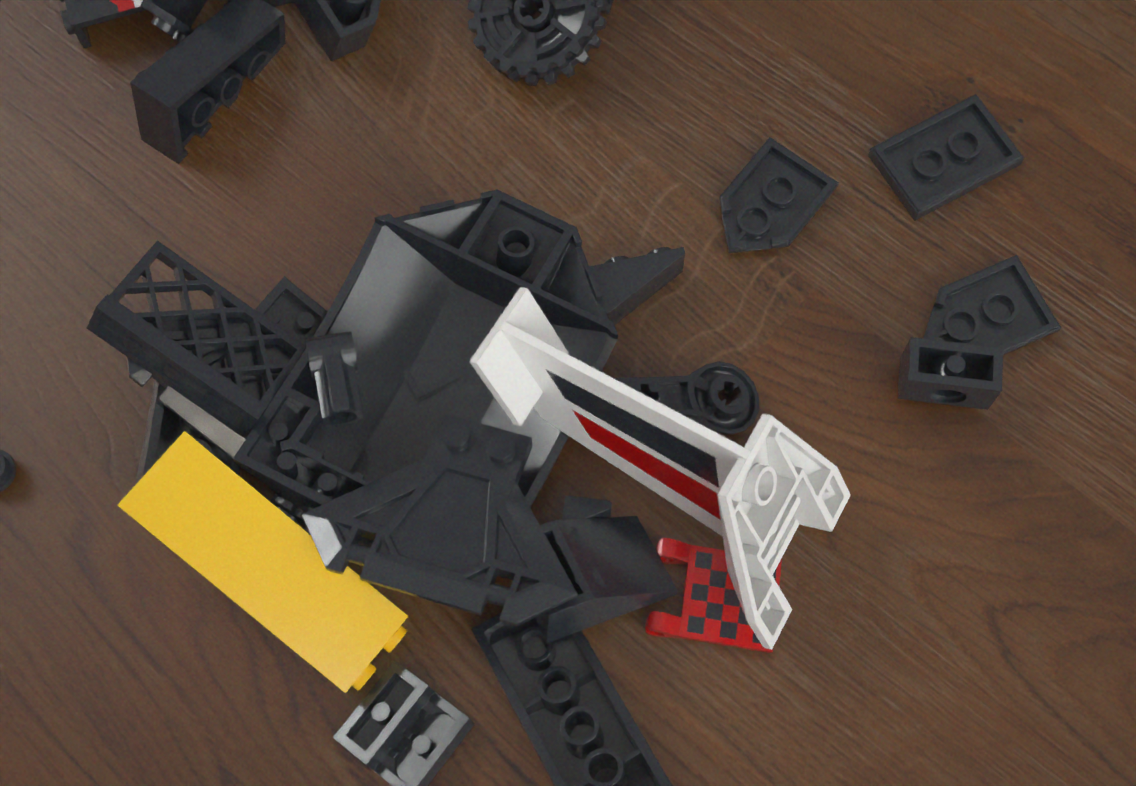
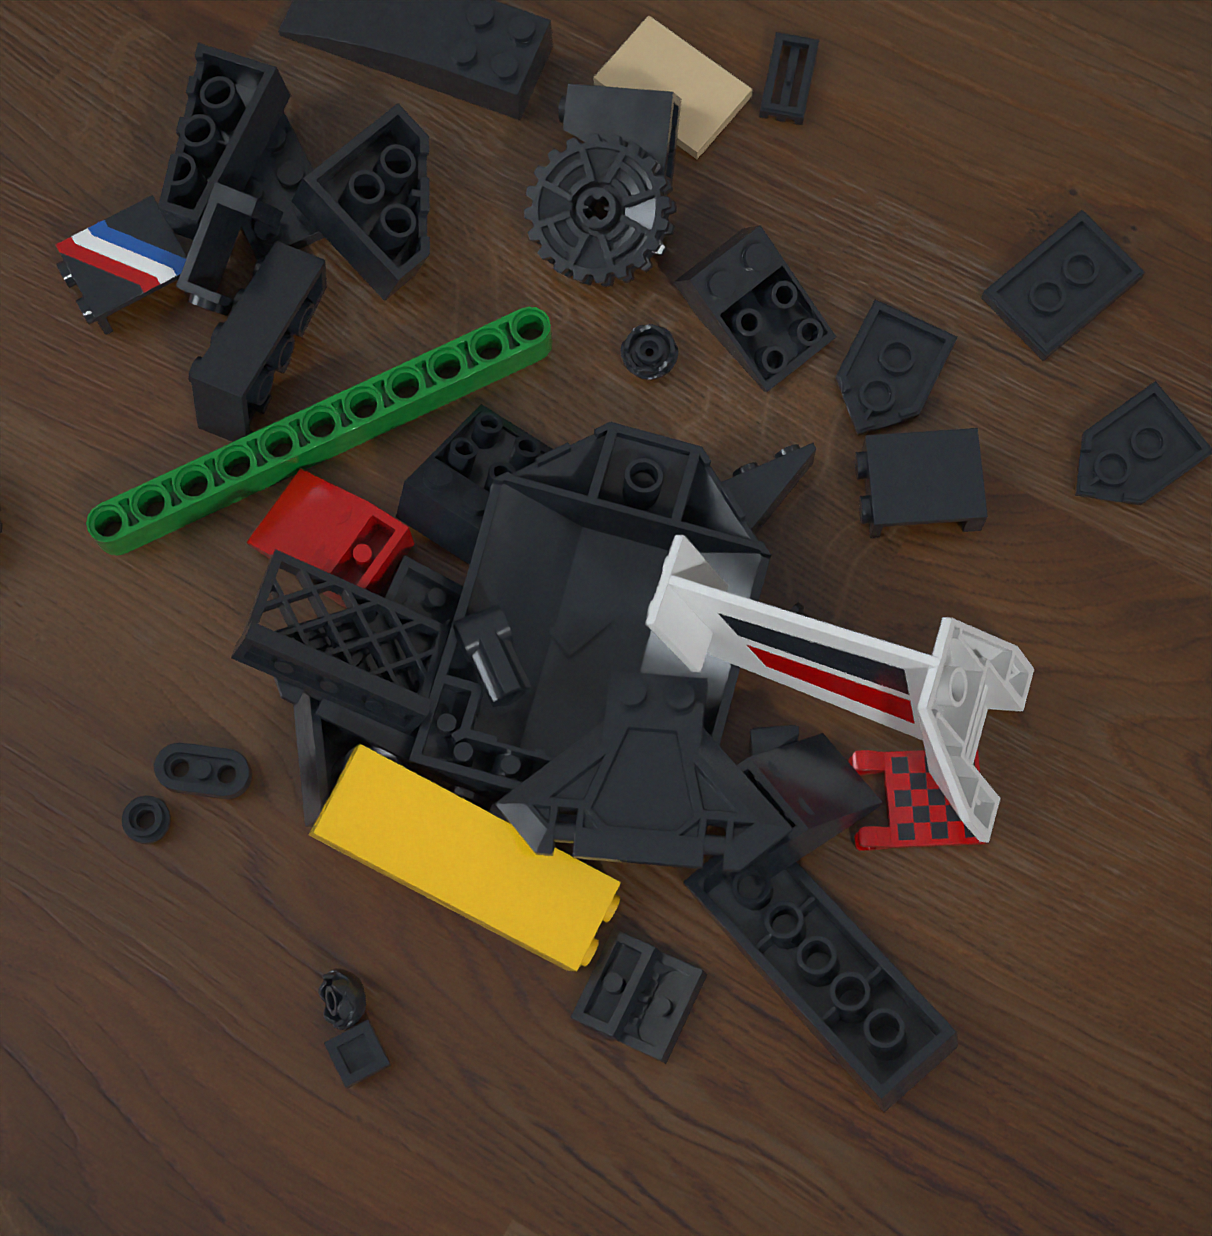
camera: 10 degrees left, 5 degrees up
(58, 438) = (204, 771): none -> black plate
(122, 730) = (357, 1054): none -> black plate
(123, 674) = (343, 998): none -> black plate
(224, 153) = (311, 450): none -> green beam
(232, 248) = (333, 533): none -> red slope
(336, 226) = (452, 486): none -> black slope
(551, 134) = (644, 339): none -> black plate
(659, 124) = (755, 307): none -> black slope
(698, 397) = (860, 600): black beam -> none
(779, 300) = (922, 479): none -> black panel
(950, 373) = (1111, 524): black brick -> none

